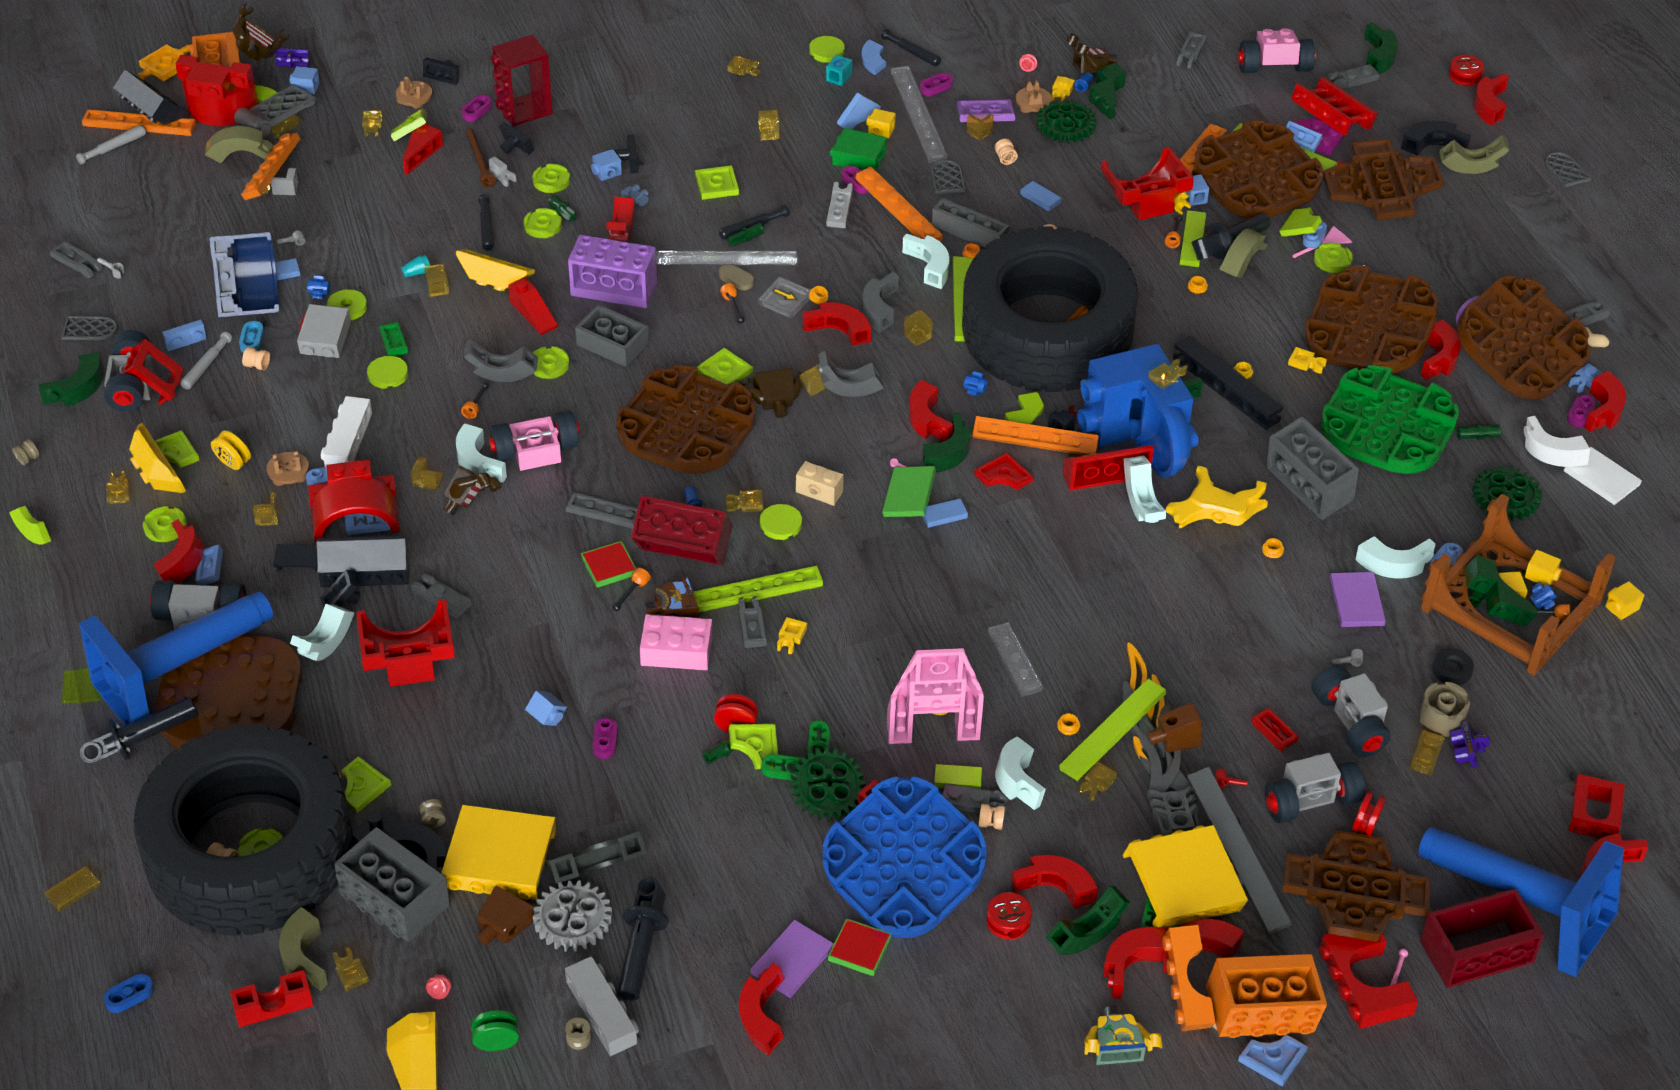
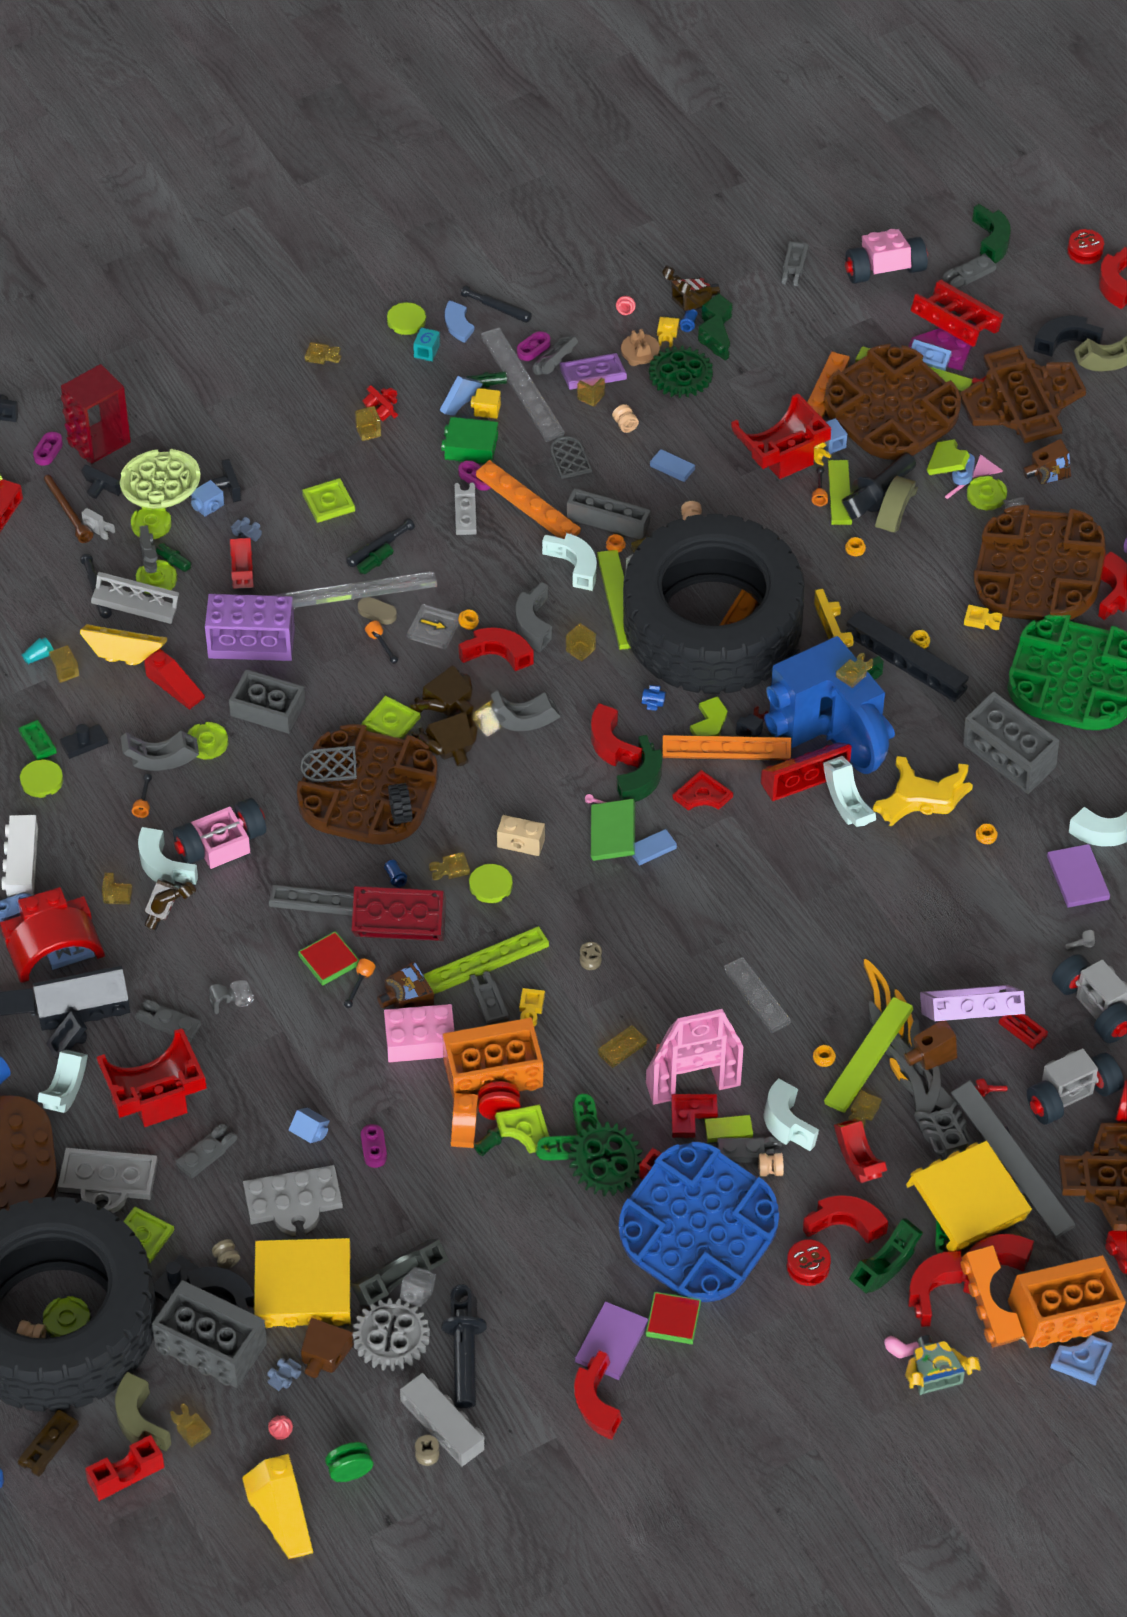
camera: 10 degrees left, 5 degrees up
(206, 962) = (48, 1442): none -> dark brown plate
(340, 725) = (107, 1176): none -> light grey plate
(435, 345) = (83, 740): none -> black tile
(442, 717) = (206, 1151): none -> dark grey hinge
(457, 937) = (284, 1375): none -> sand blue piece
(513, 773) = (293, 1198): none -> light grey plate
(514, 581) = (238, 992): none -> leg
(516, 238) = (135, 601): none -> light grey fence
(540, 197) = (148, 550): none -> dark grey hinge
(567, 143) = (160, 478): none -> yellowish green brick
(610, 874) = (417, 1286): none -> clear brick
(654, 402) = (324, 765): none -> dark grey window
(698, 727) = (464, 1120): none -> orange arch
(708, 434) = (400, 803): none -> black tyre
(739, 668) = (493, 1054): none -> orange brick
(780, 351) = (446, 694): none -> dark brown torso
(793, 105) = (386, 408): none -> red hips
(860, 599) = (586, 952): none -> dark tan wheel
(870, 685) = (622, 1046): none -> clear yellow plate
(891, 105) = (490, 379): none -> dark green pin
(924, 750) = (687, 1108): none -> red plate
(951, 94) = (554, 355): none -> dark grey hinge
(1082, 818) = (857, 1151): none -> red arch
(1083, 1014) = (898, 1348): none -> bright pink arm
(1160, 334) = (827, 612): none -> yellow hinge
(1226, 694) = (972, 1002): none -> lavender window
(1397, 239) = (1049, 463): none -> reddish brown torso

